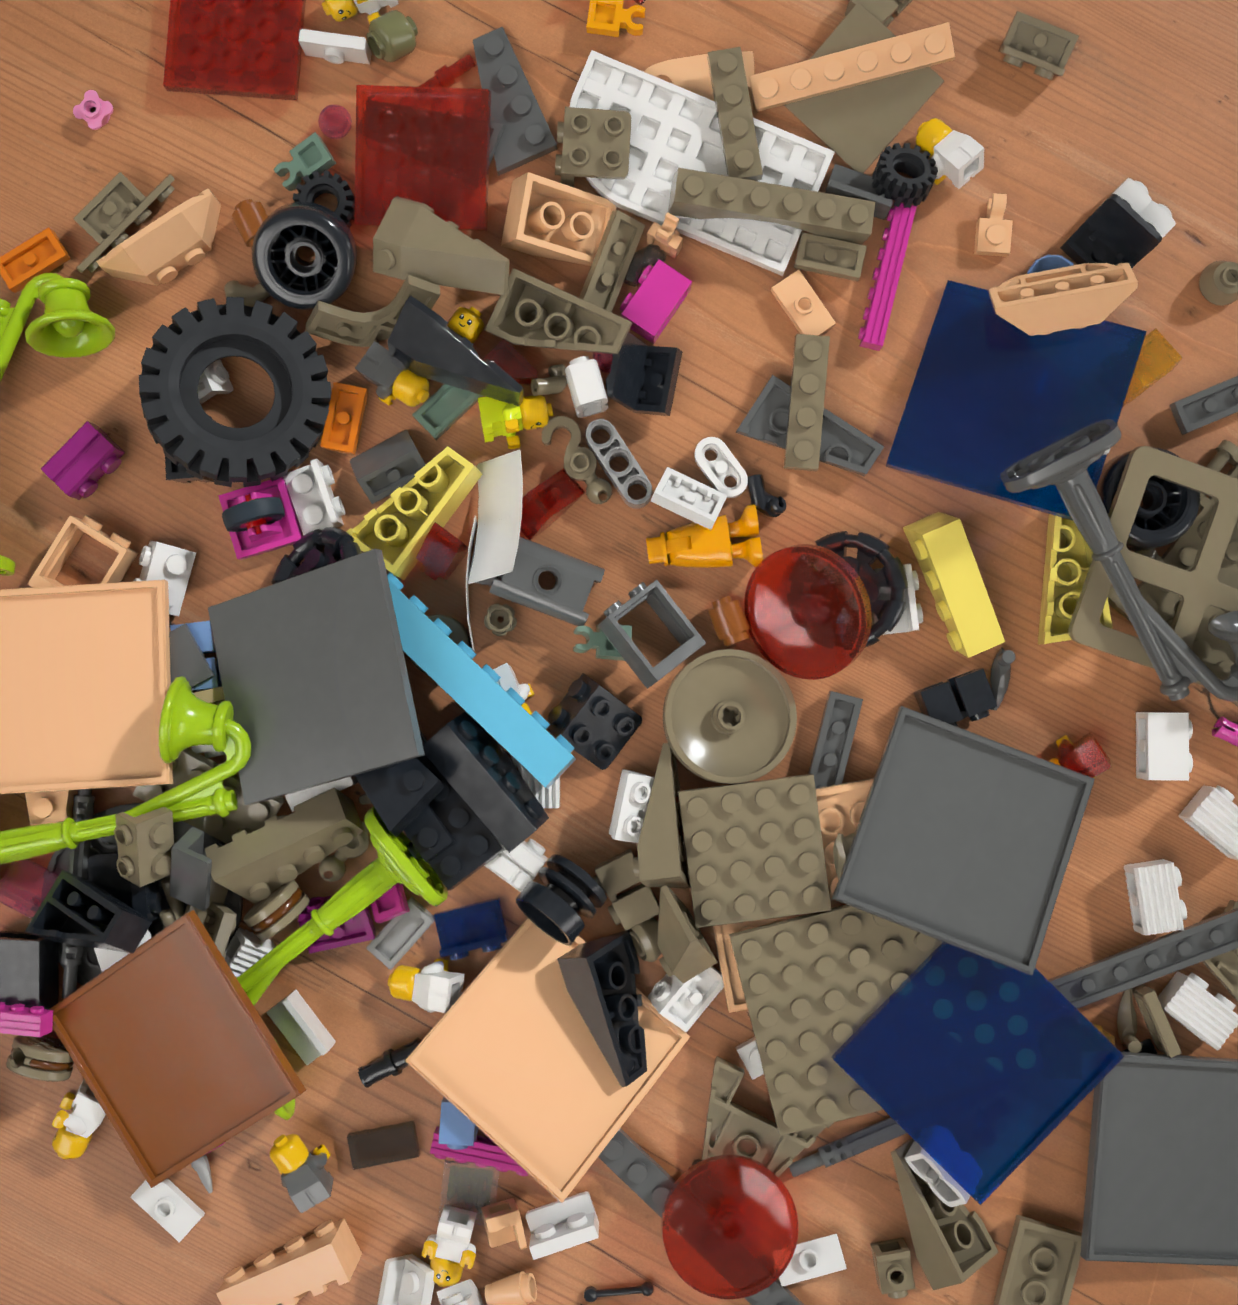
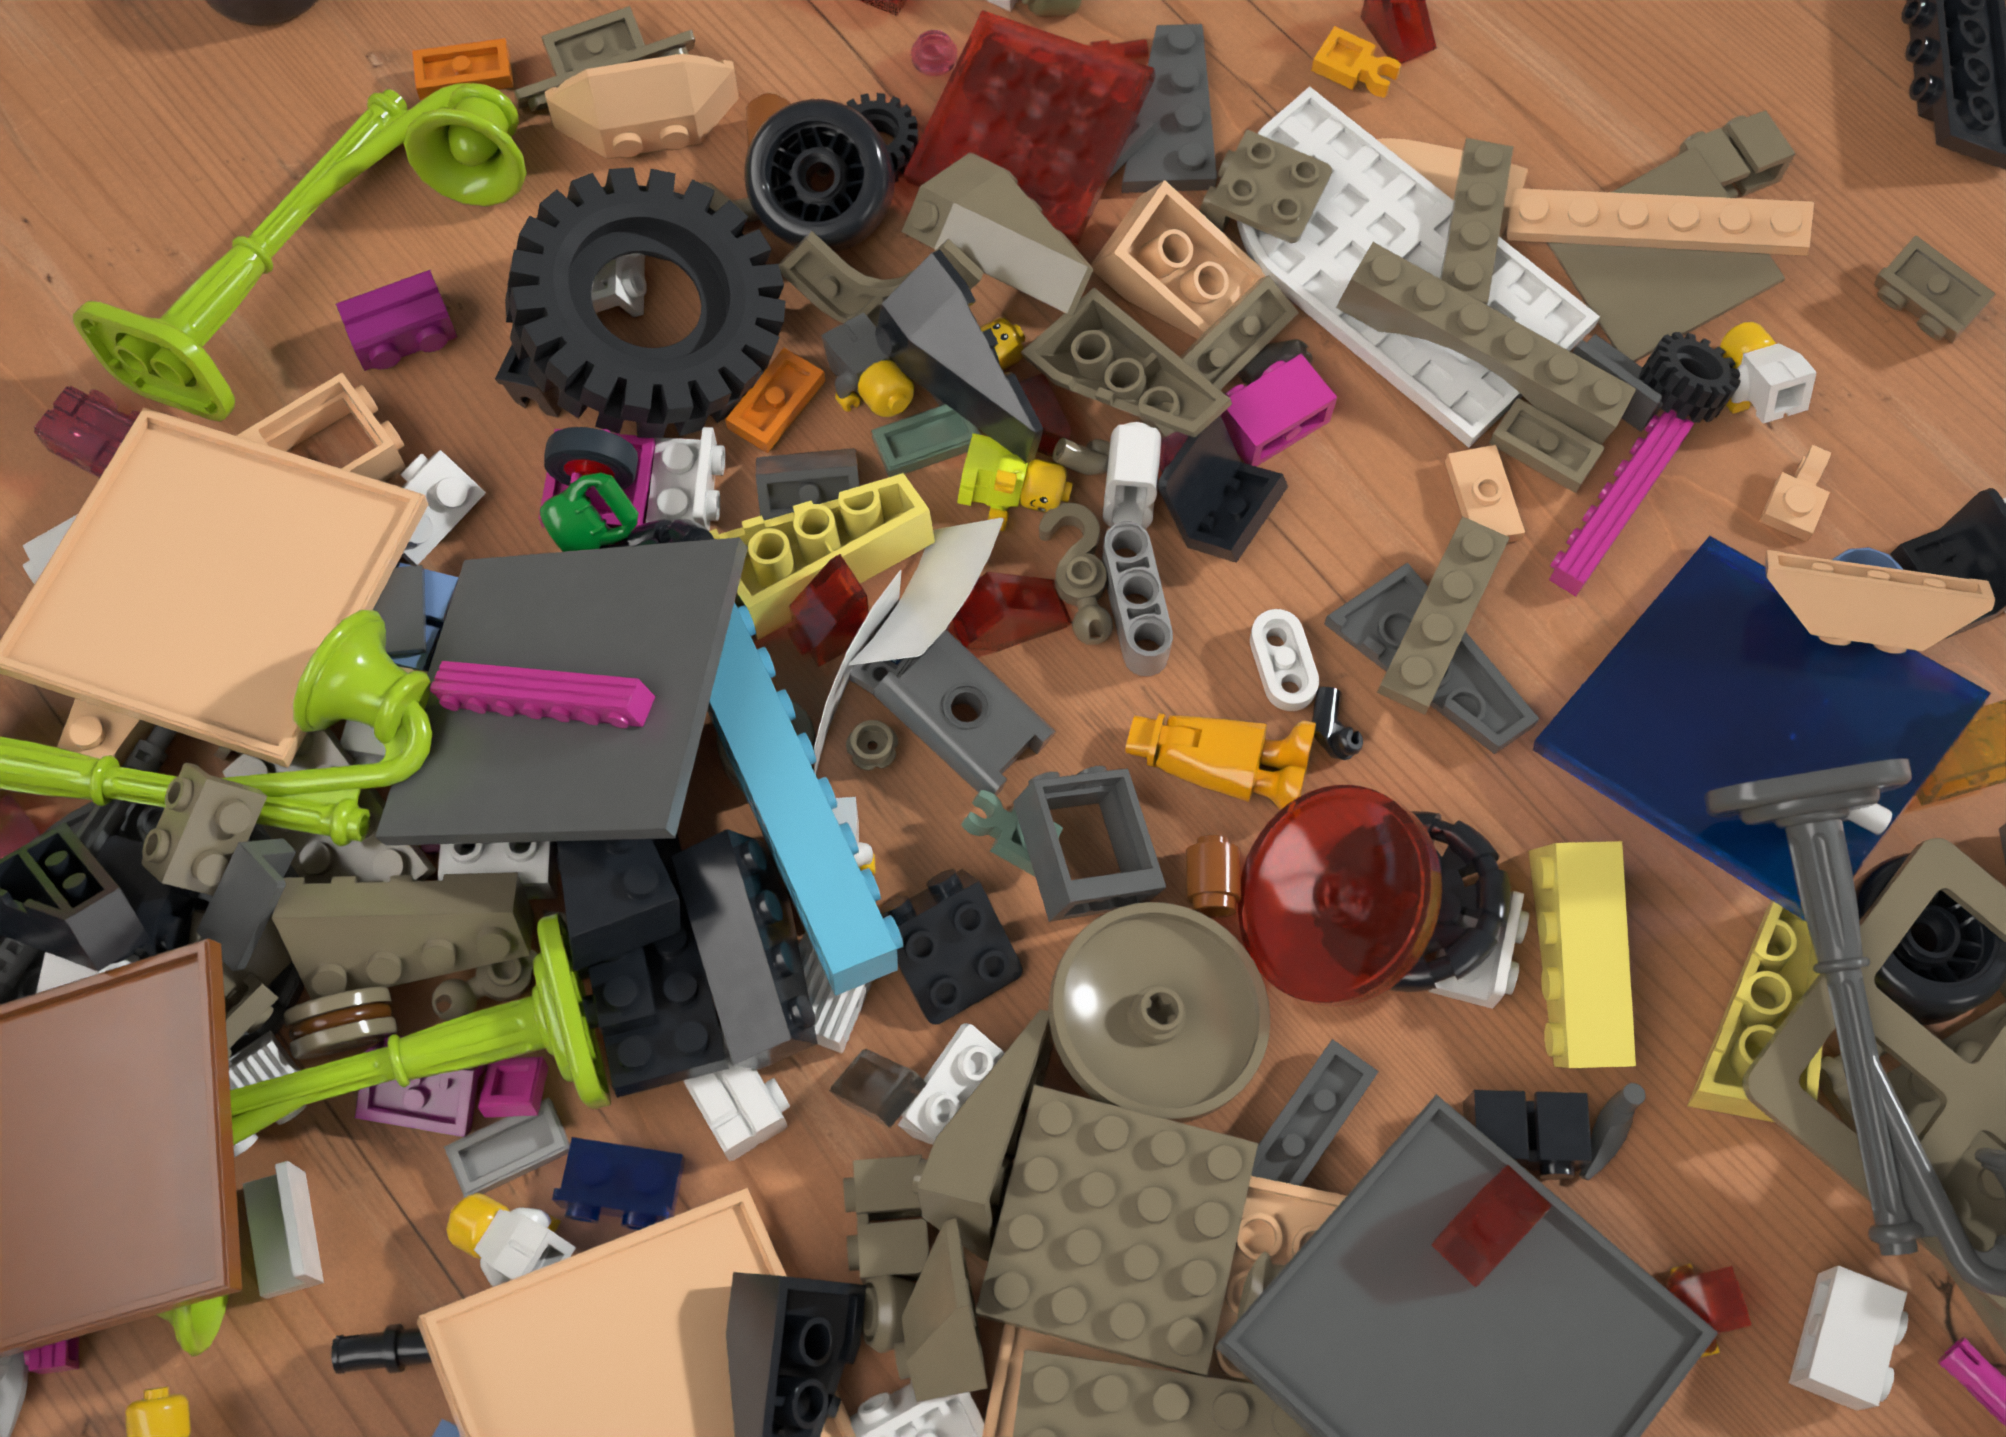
camera: 20 degrees right, 20 degrees down
(264, 558) = (577, 523): none -> green piece
(303, 691) = (542, 694): none -> dark pink piece
(308, 157) = (879, 75): sand green plate -> none
(565, 894) = (781, 1180): black wheel -> none
(591, 824) = (877, 1087): none -> clear smoke tile
(666, 236) = (1322, 334): light nougat plate -> none
(689, 498) = (1221, 675): white bracket -> none
(958, 772) = (1491, 1225): none -> clear red slope

